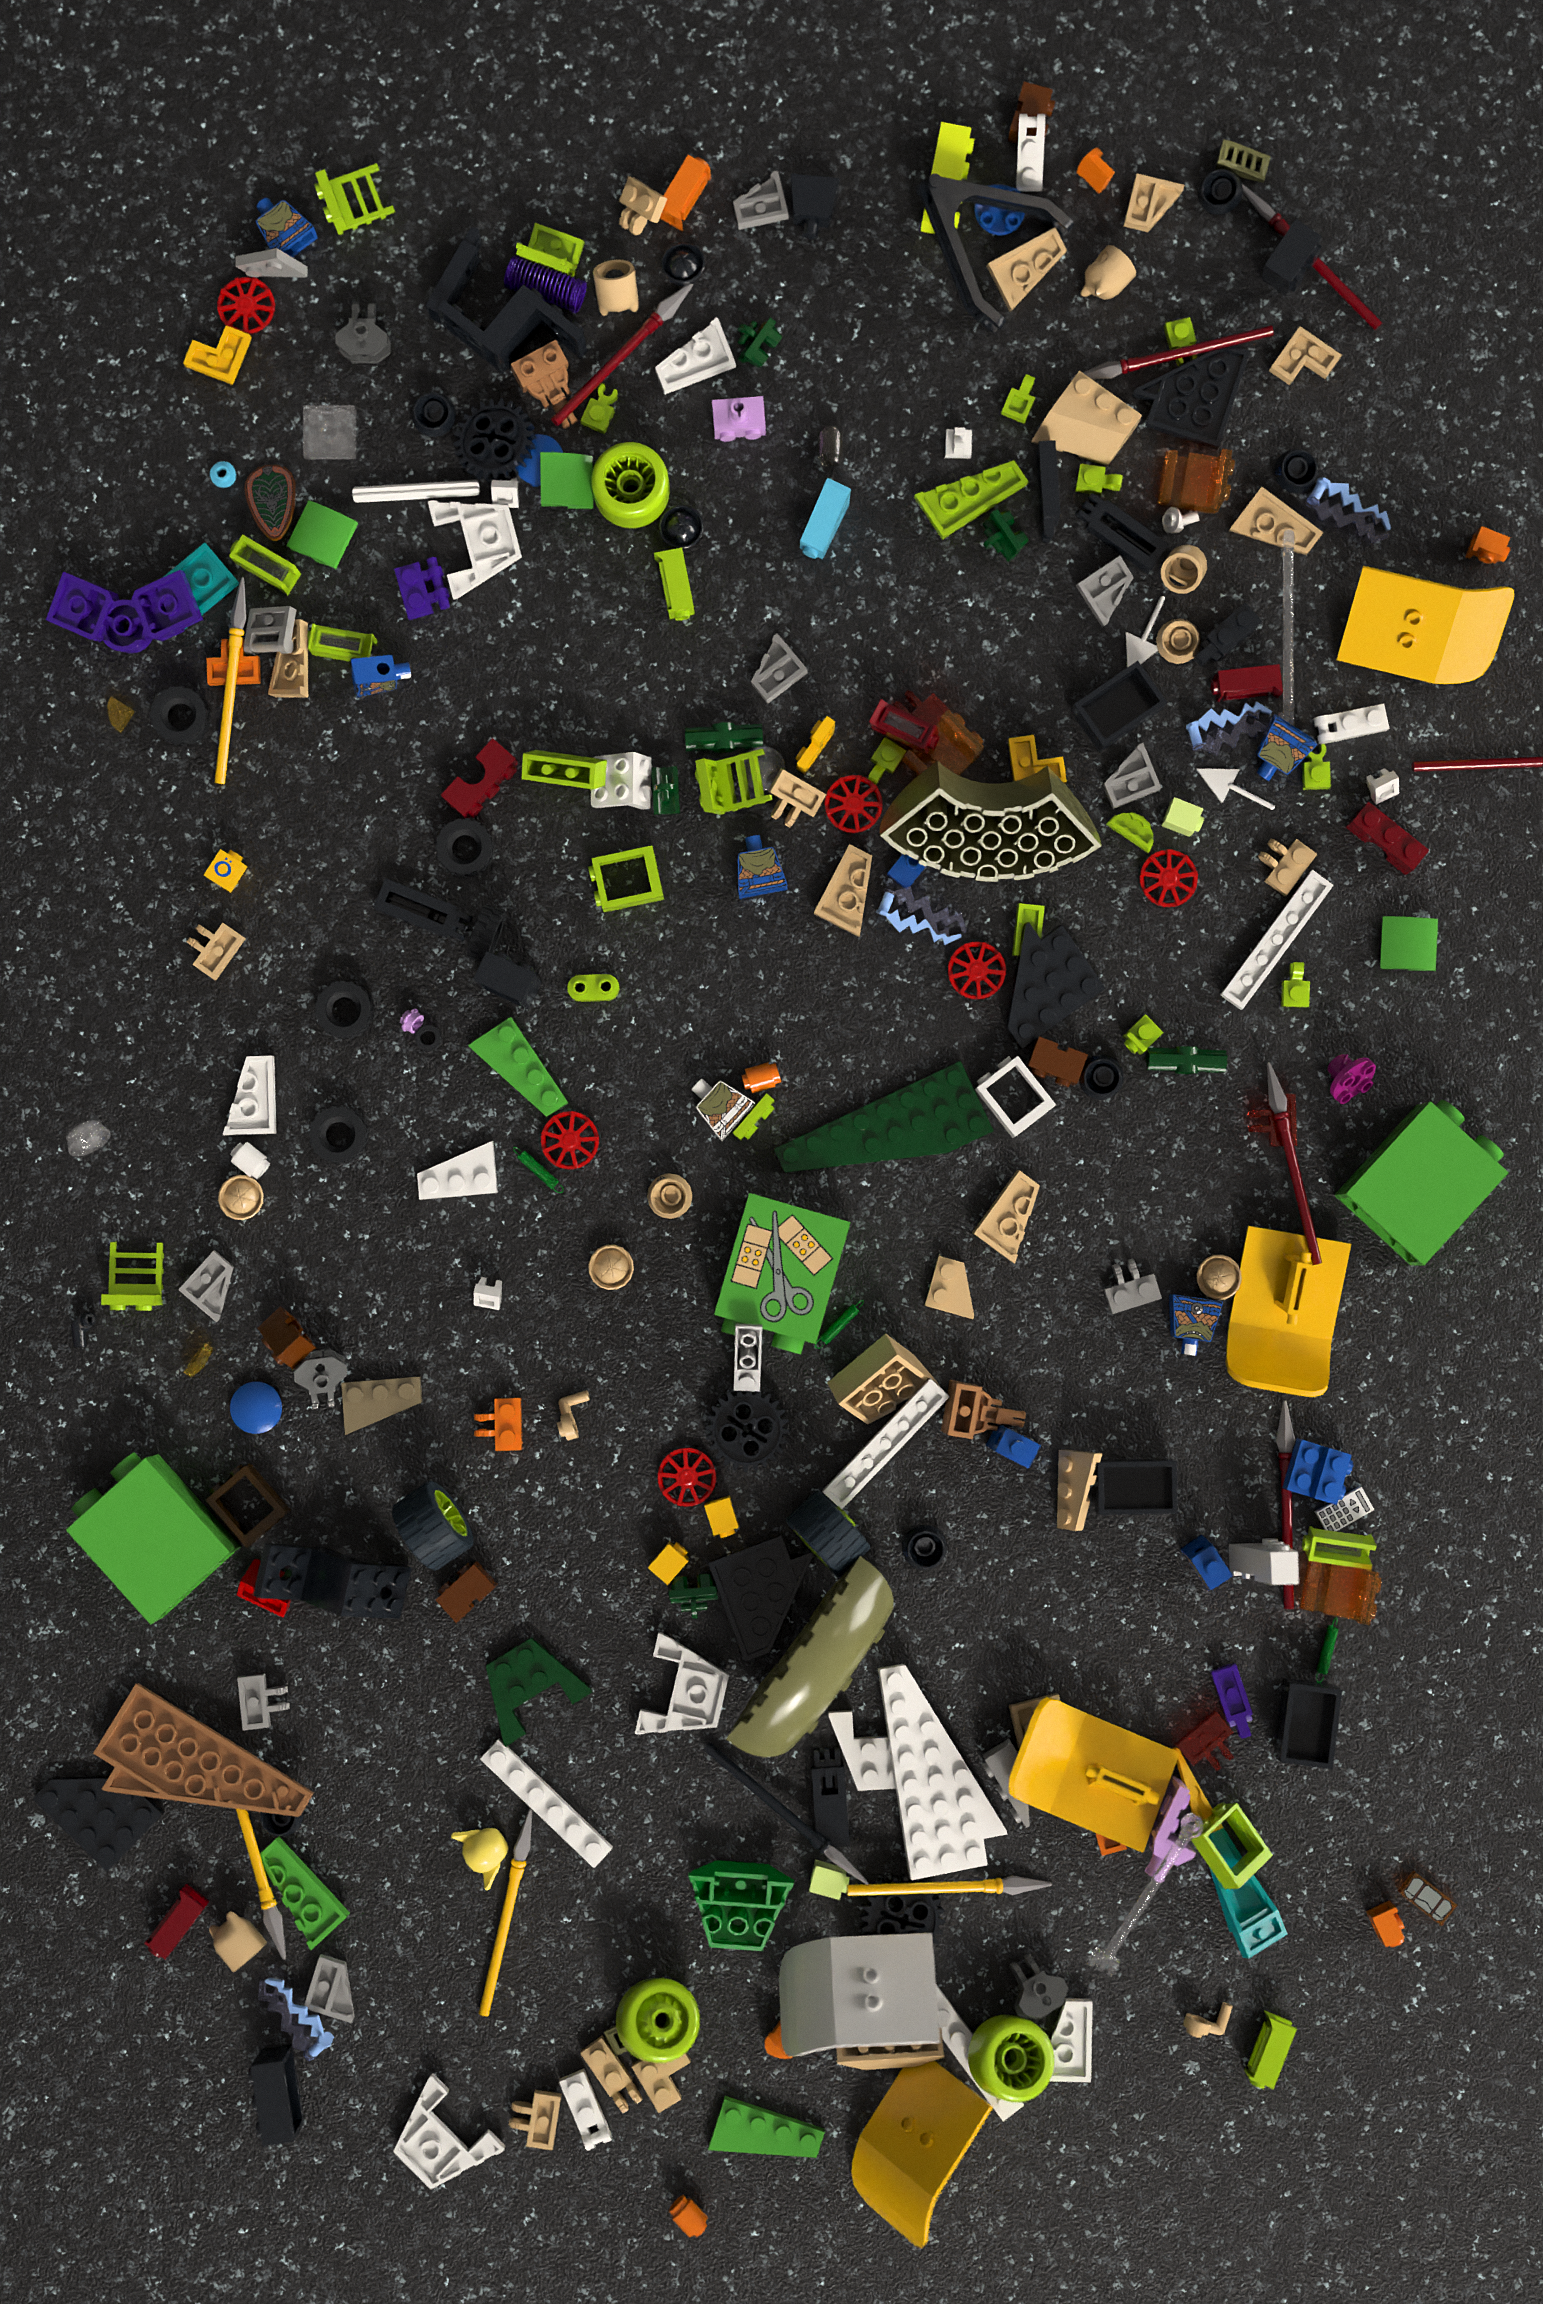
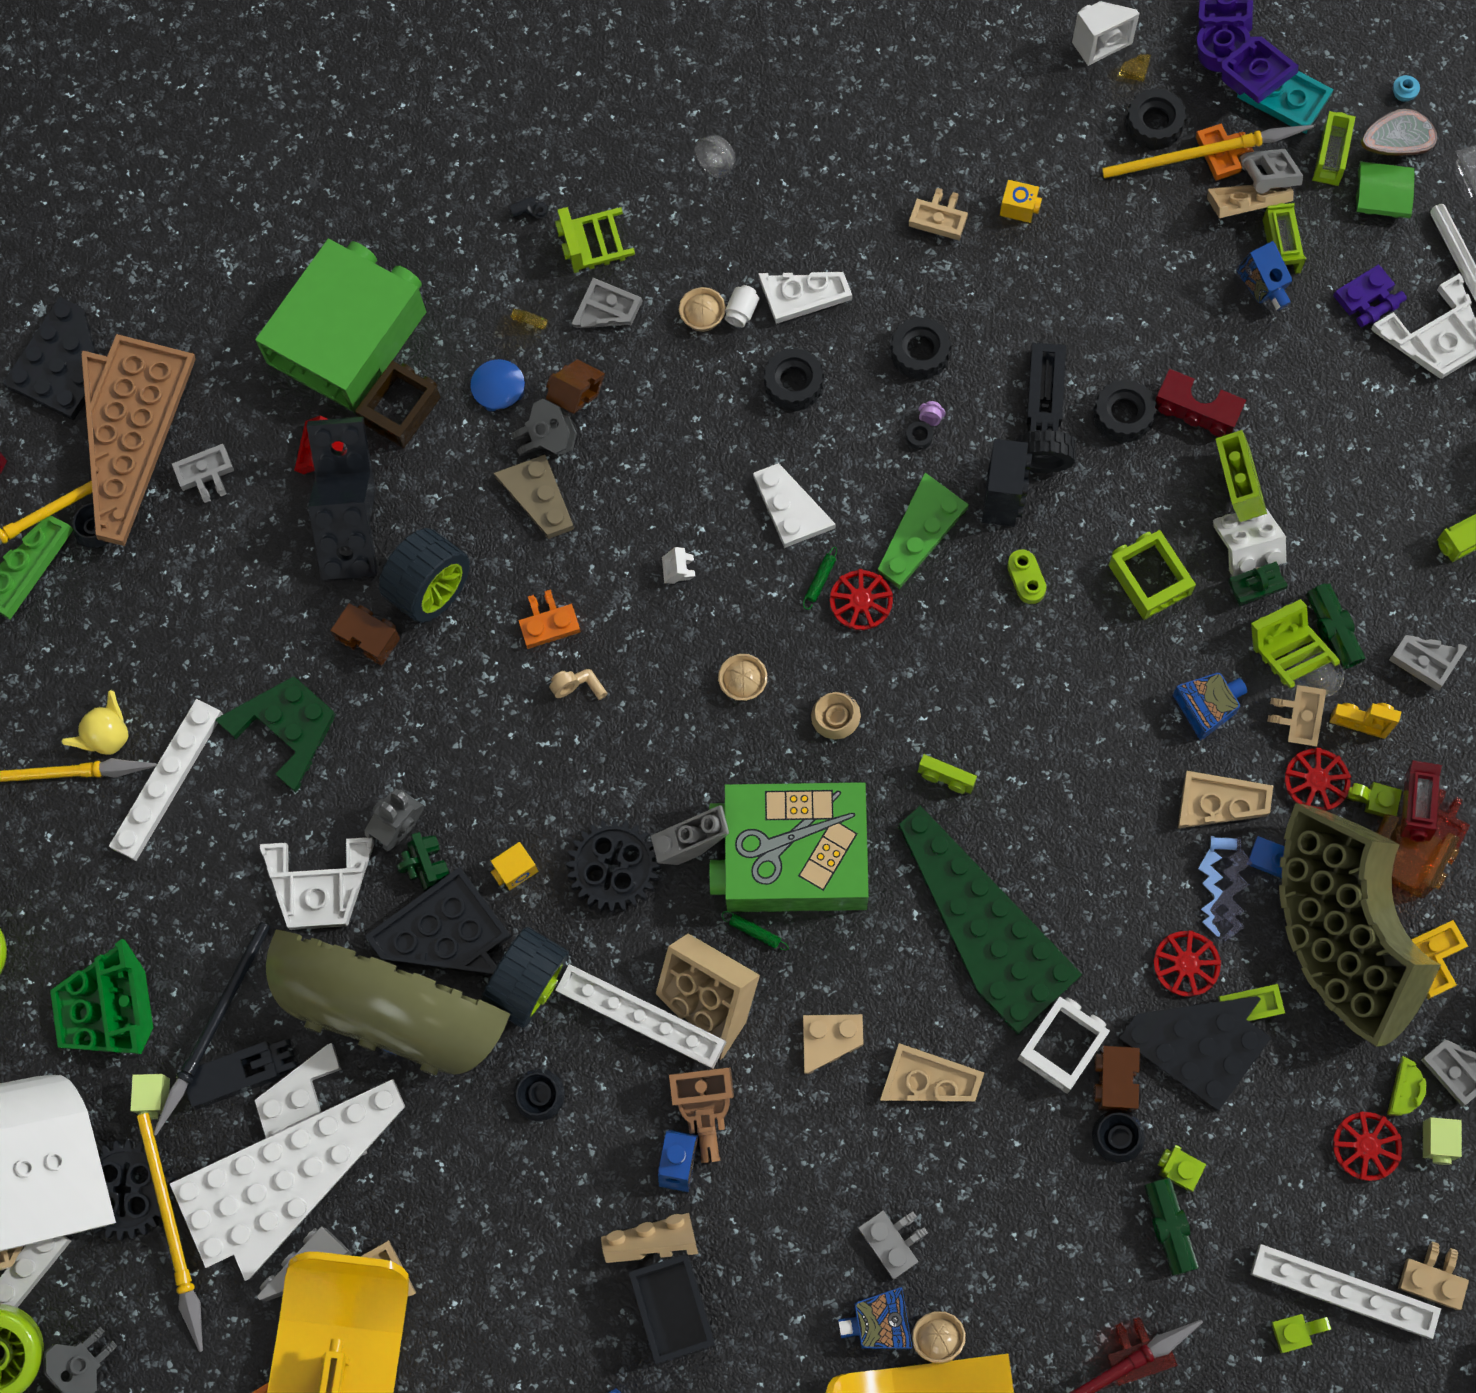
camera: 80 degrees right, 15 degrees down
(75, 733) = (1103, 30): none -> white slope
(648, 1610) = (393, 818): none -> dark grey hinge
(669, 1562) = (450, 826): yellow brick -> none
(686, 1477) = (545, 819): red wheel -> none
(721, 1106) = (946, 736): torso -> none
(761, 1077) = (992, 769): orange brick -> none

